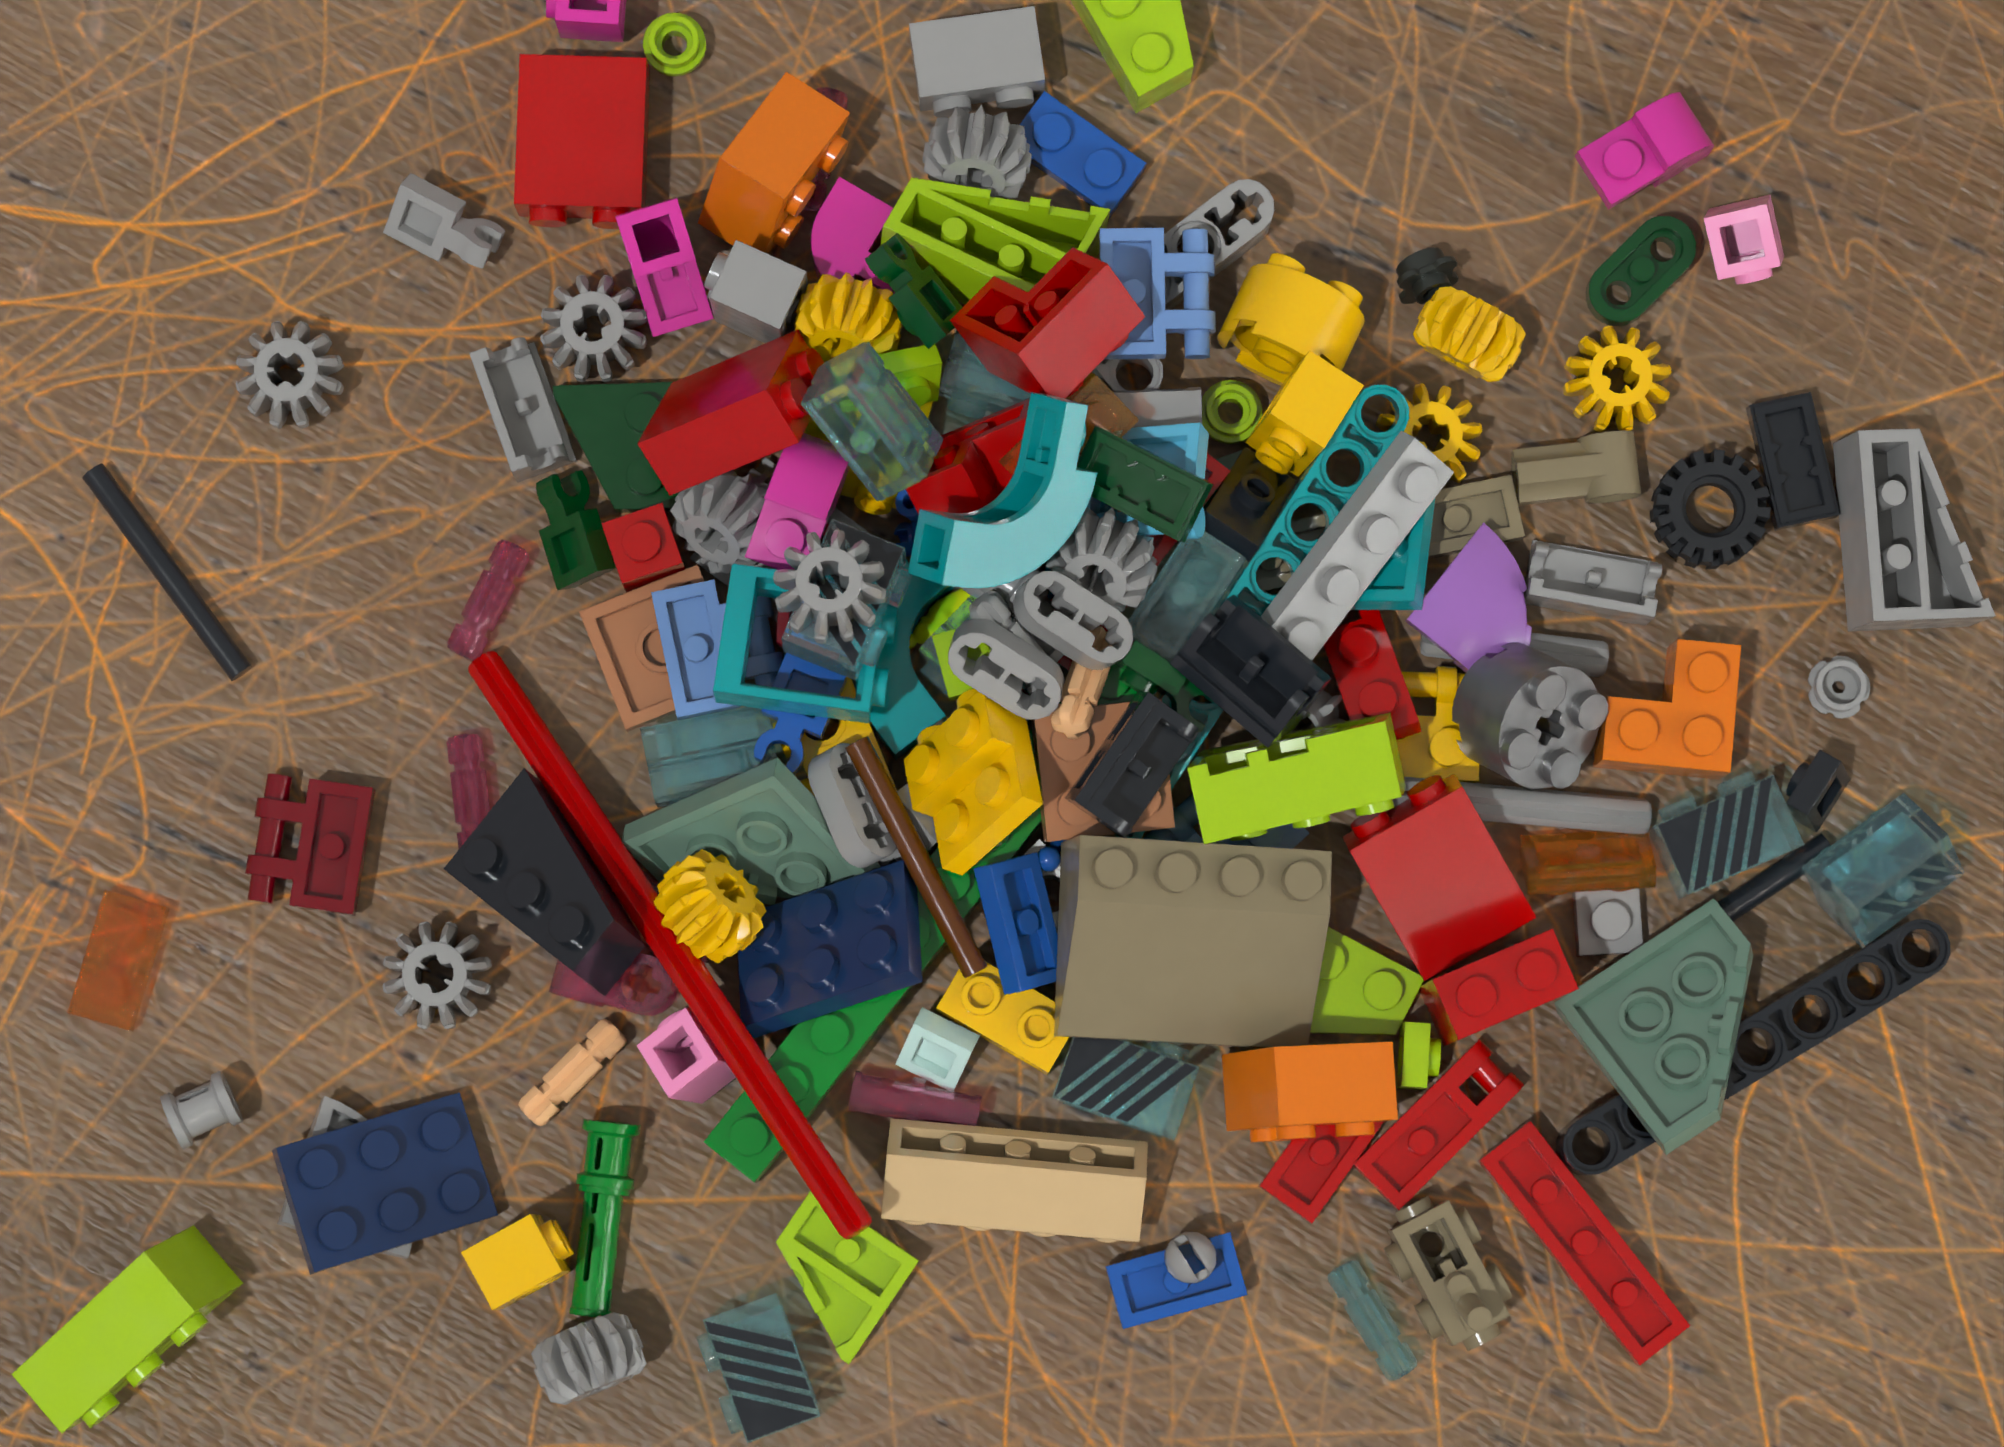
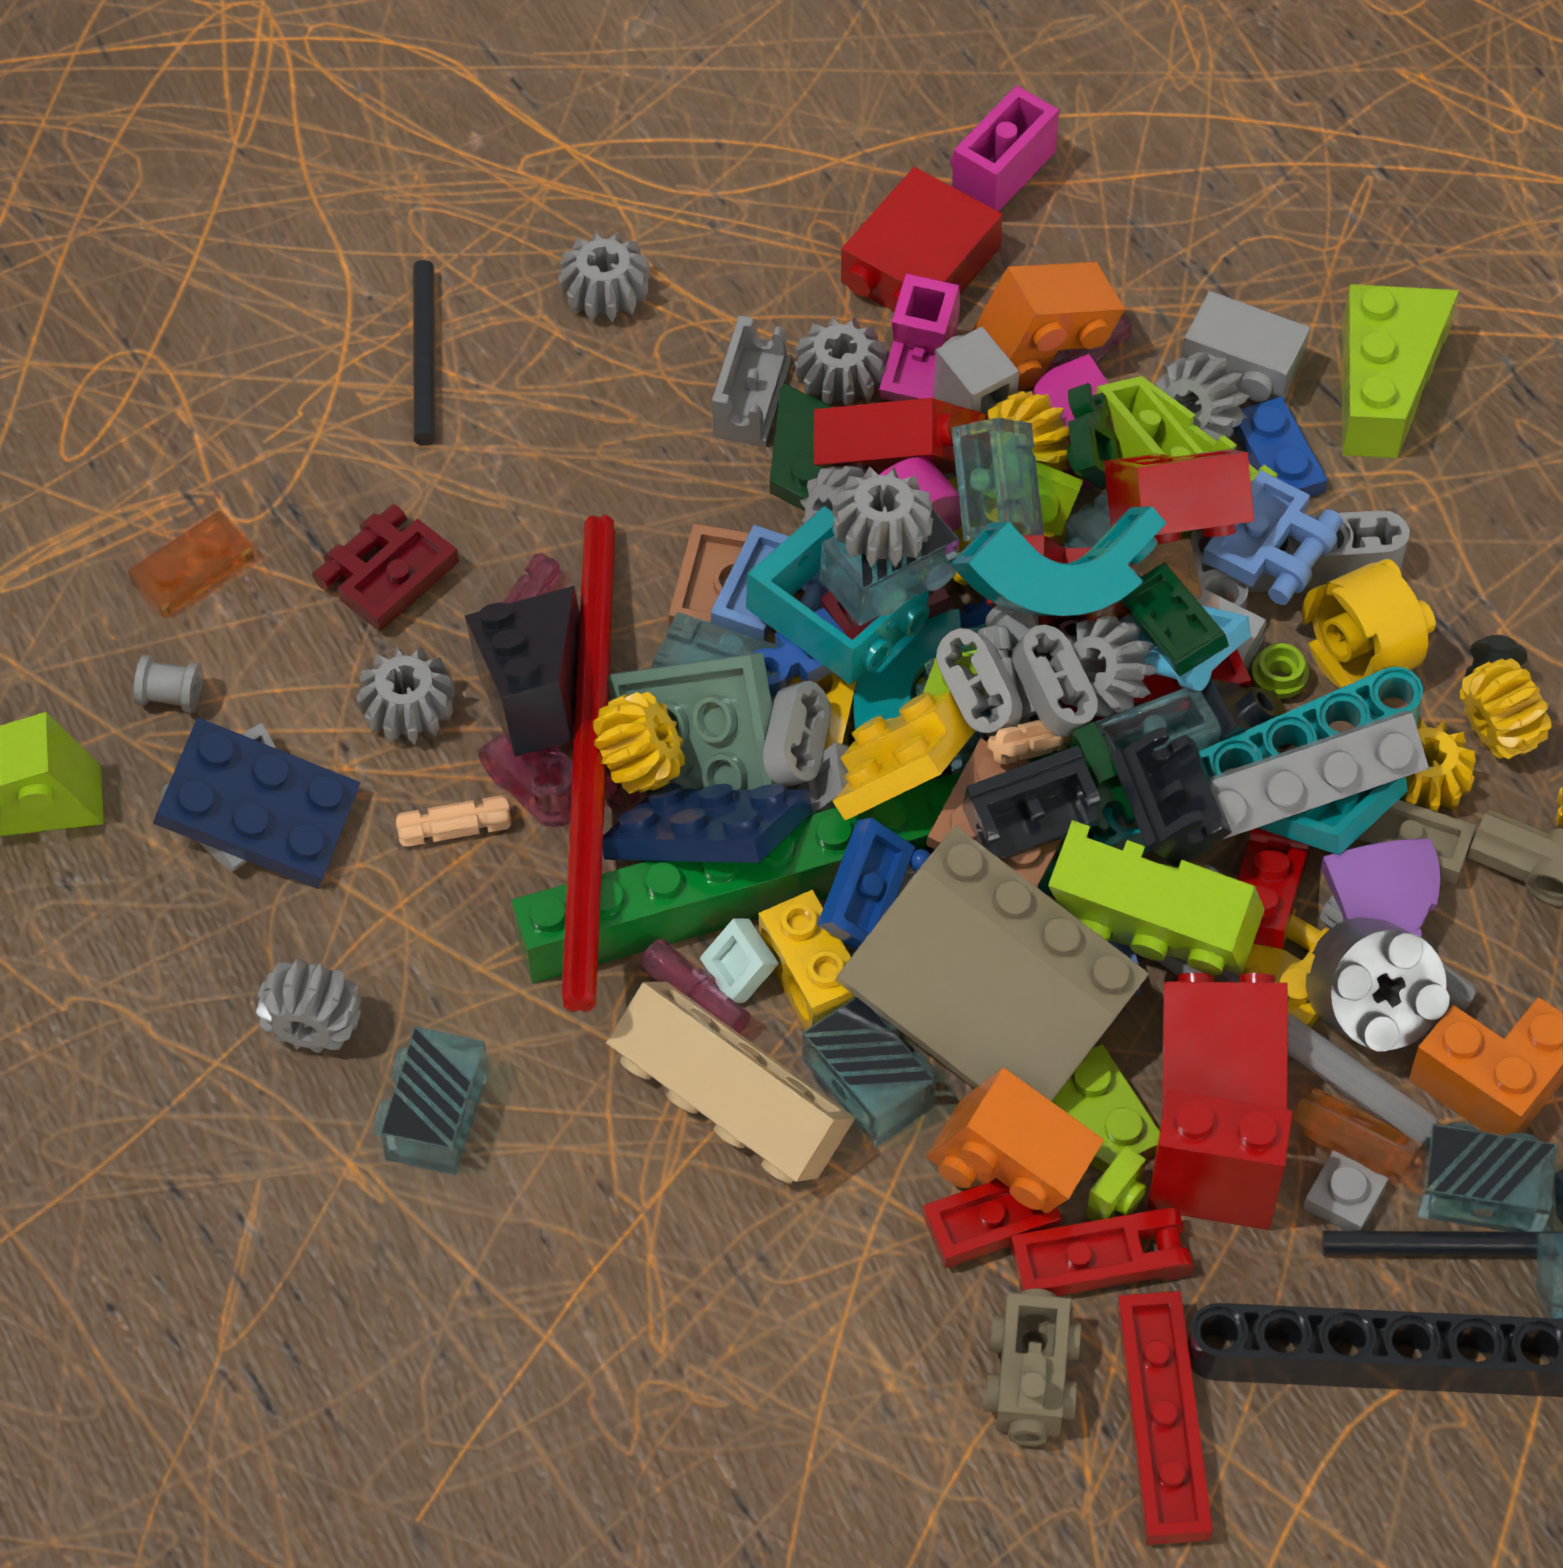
camera: 40 degrees right, 25 degrees down
(433, 224) = (774, 243): light grey plate -> none
(488, 600) = (635, 488): clear pink axle -> none
(519, 1260) = (310, 902): yellow brick -> none
(575, 536) = (726, 482): dark green plate -> none
(604, 1185) = (415, 906): green pin -> none
(643, 547) = (771, 500): red brick -> none
(674, 25) = (1030, 222): lime plate -> none
(685, 1059) = (541, 843): bright pink brick -> none
(841, 1277) = (550, 1075): lime wing -> none
(916, 857) = (818, 793): reddish brown bar -> none
(1148, 1292) = (805, 1239): blue plate -> none
(1177, 1264) = (843, 1219): light grey hinge -> none
(1303, 415) = (1333, 659): yellow brick -> none
(1372, 1320) = (945, 1370): clear light blue axle -> none
(1591, 583) = (1490, 942): light grey hinge -> none
(1668, 1022) = (1347, 1271): sand green plate -> none

